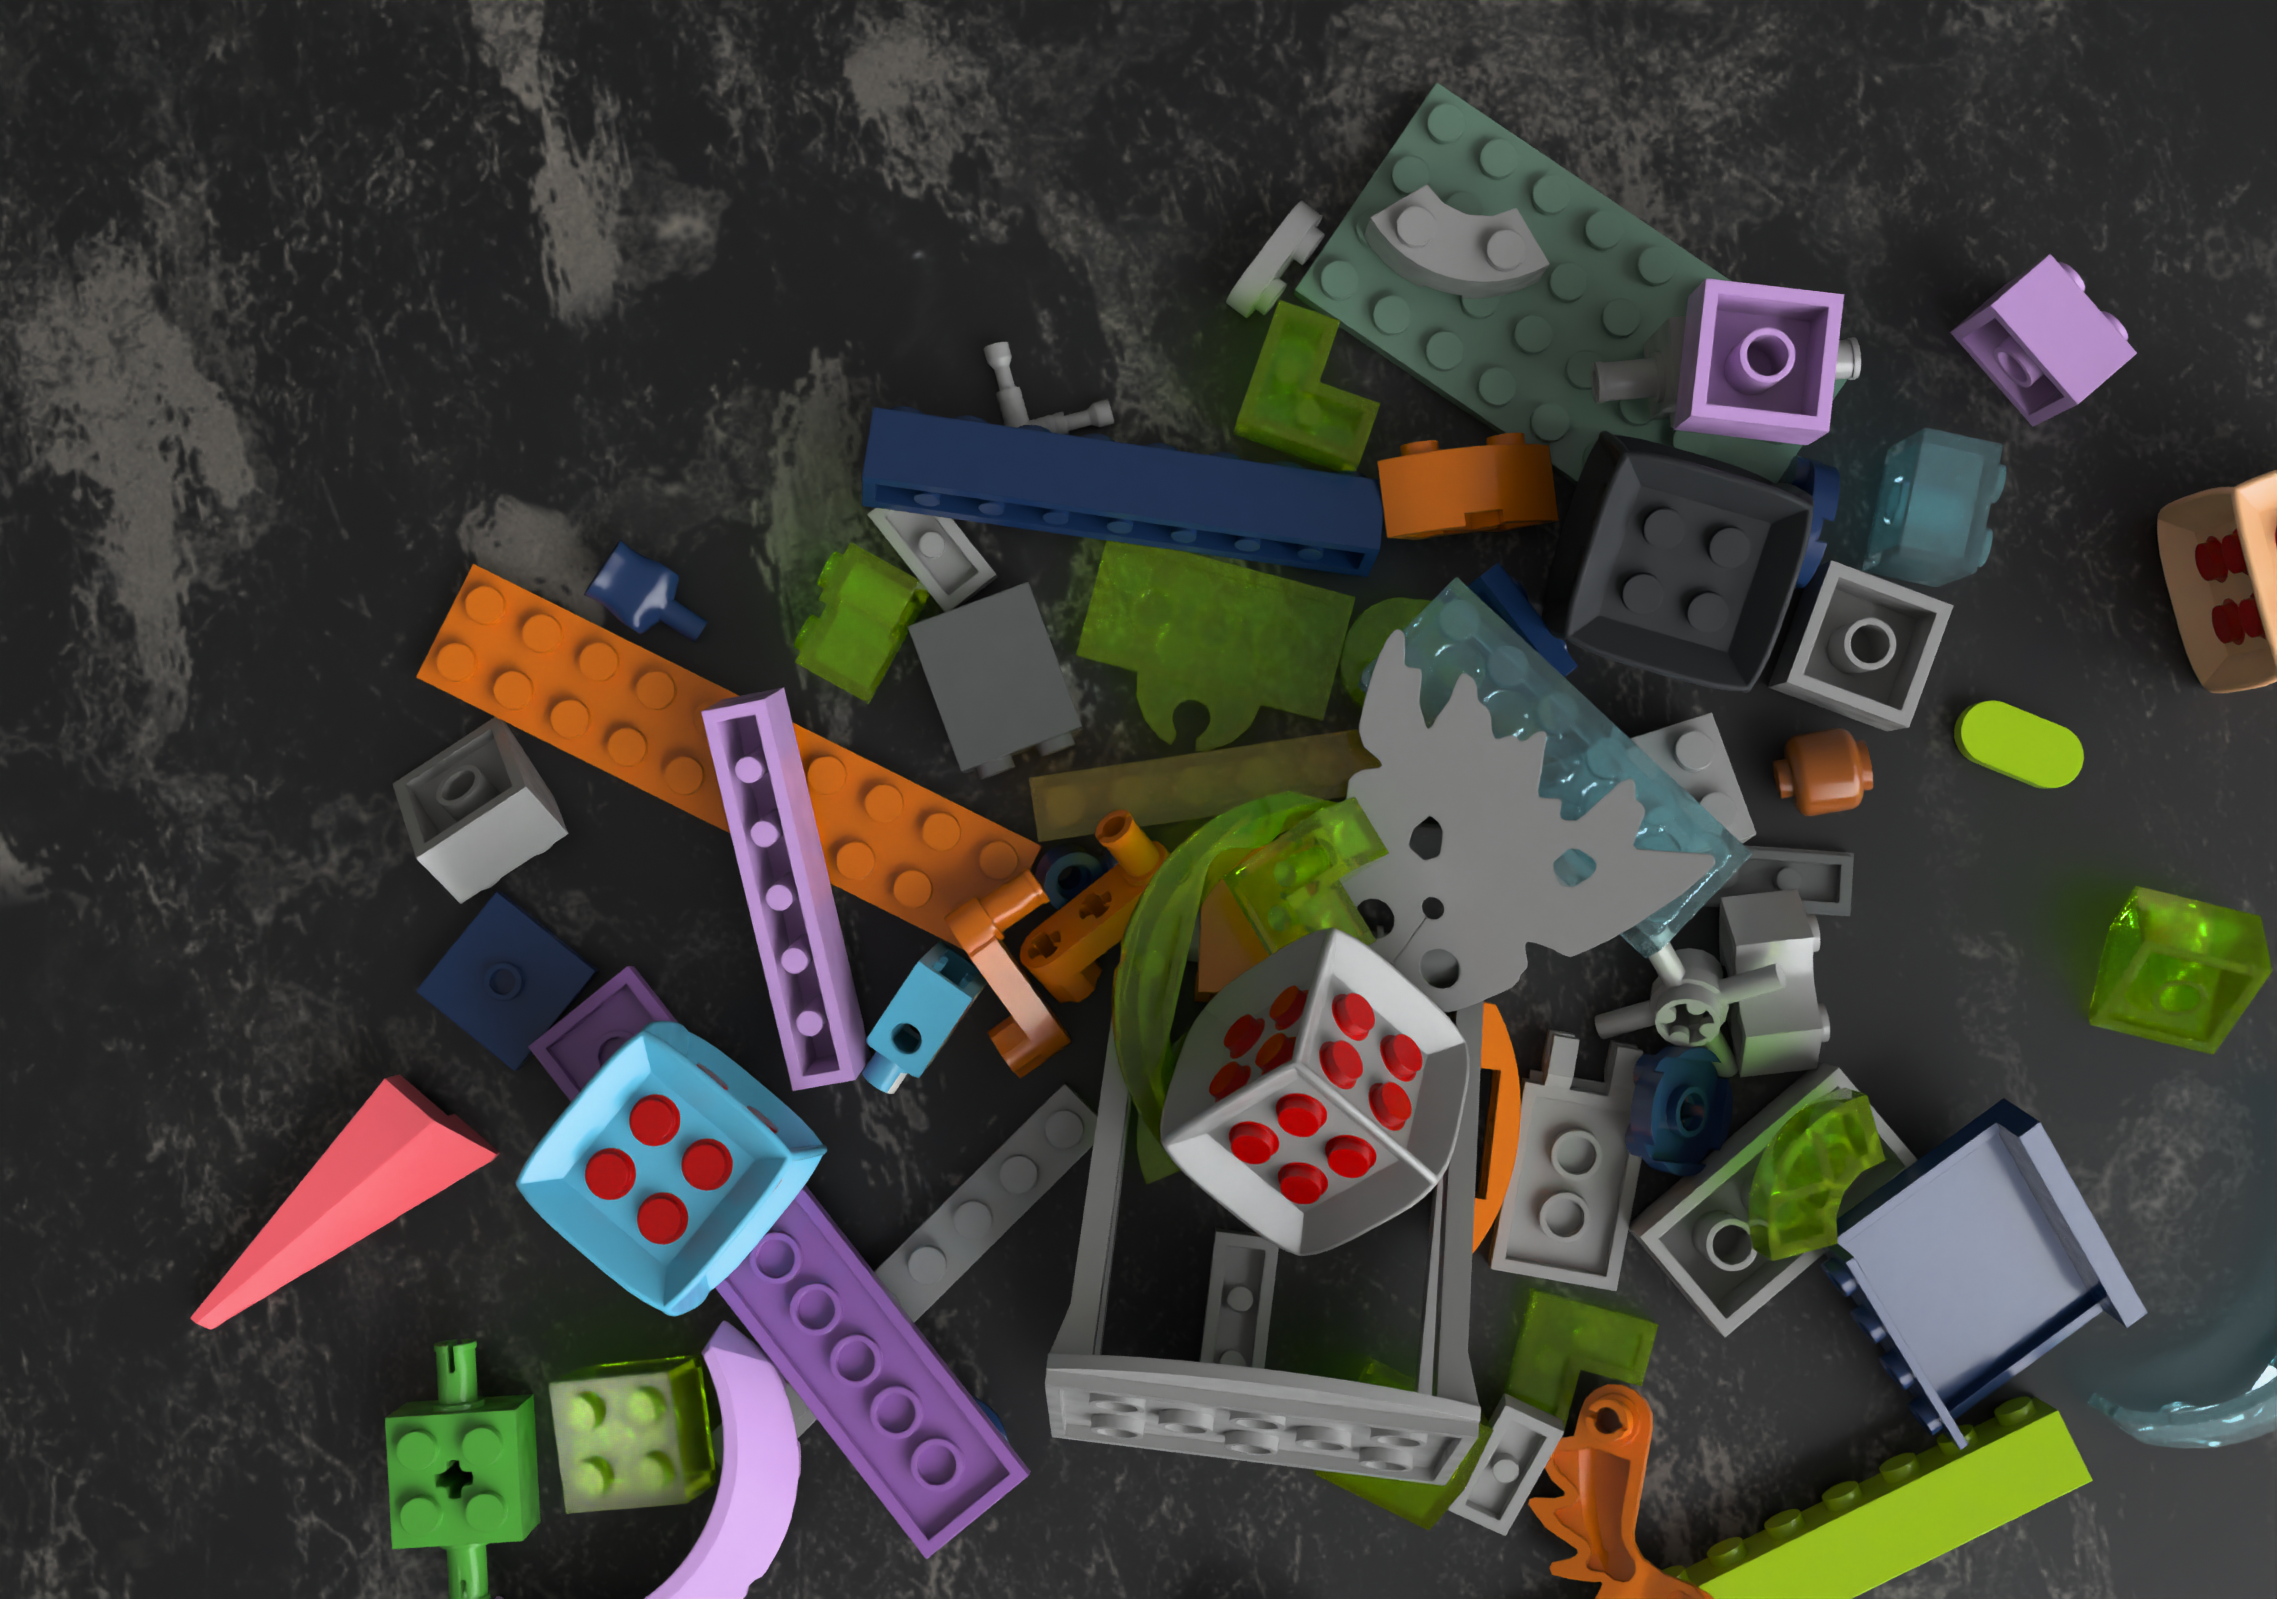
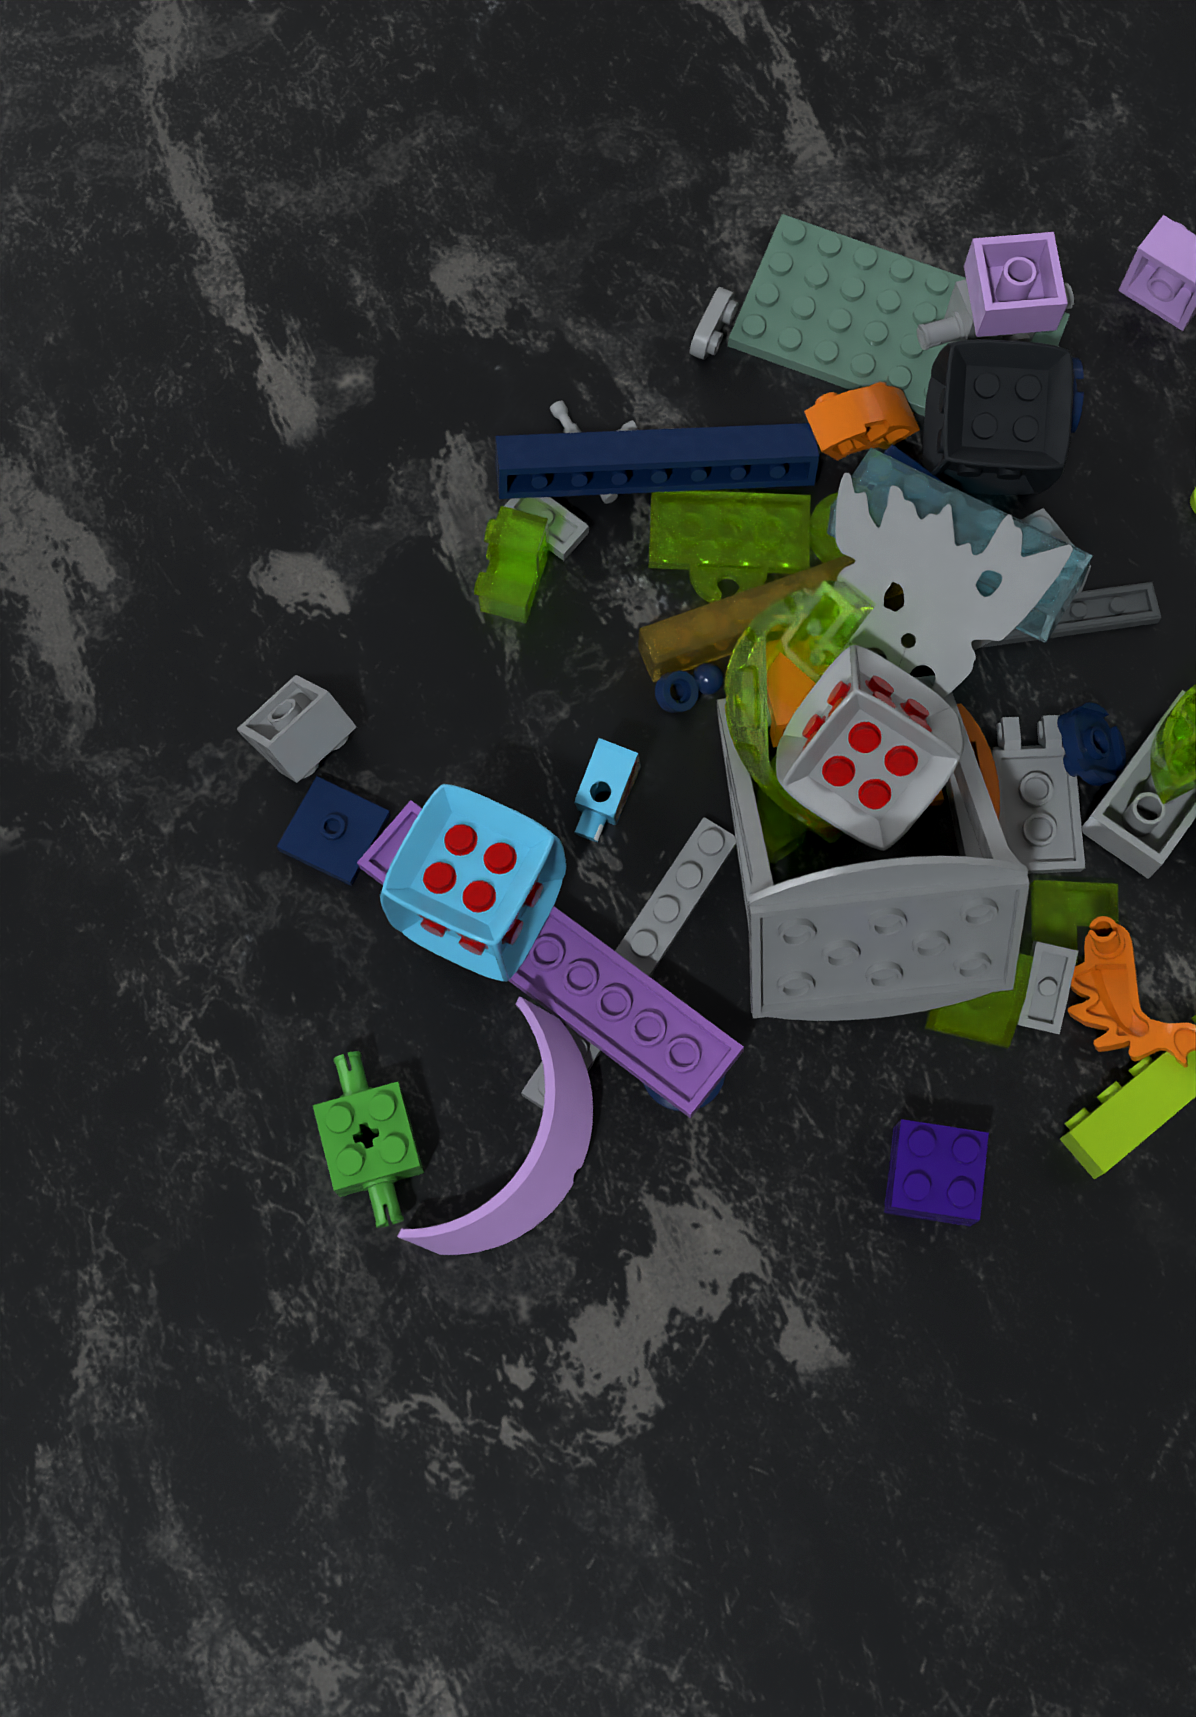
camera: 15 degrees left, 15 degrees down
(374, 1171) = (274, 960): coral wedge -> none
(633, 1434) = (476, 1086): clear neon green brick -> none
(642, 593) = (372, 582): dark blue piece -> none
(647, 727) = (446, 671): orange plate -> none
(787, 888) = (503, 716): lavender brick -> none
(996, 681) = (605, 585): dark grey panel -> none
(1032, 1029) = (676, 782): orange beam -> none
(1066, 945) = (685, 726): orange beam -> none
(1291, 407) = (747, 395): clear neon green brick -> none
(1456, 250) = (818, 288): light grey brick -> none
(1691, 1002) = (1089, 688): light grey bar -> none
(1784, 1026) = (1130, 671): light grey brick -> none
(1824, 771) = (1120, 535): dark orange head -> none
(1861, 646) = (1120, 459): light grey brick -> none
(1935, 508) = (1139, 372): clear light blue brick -> none

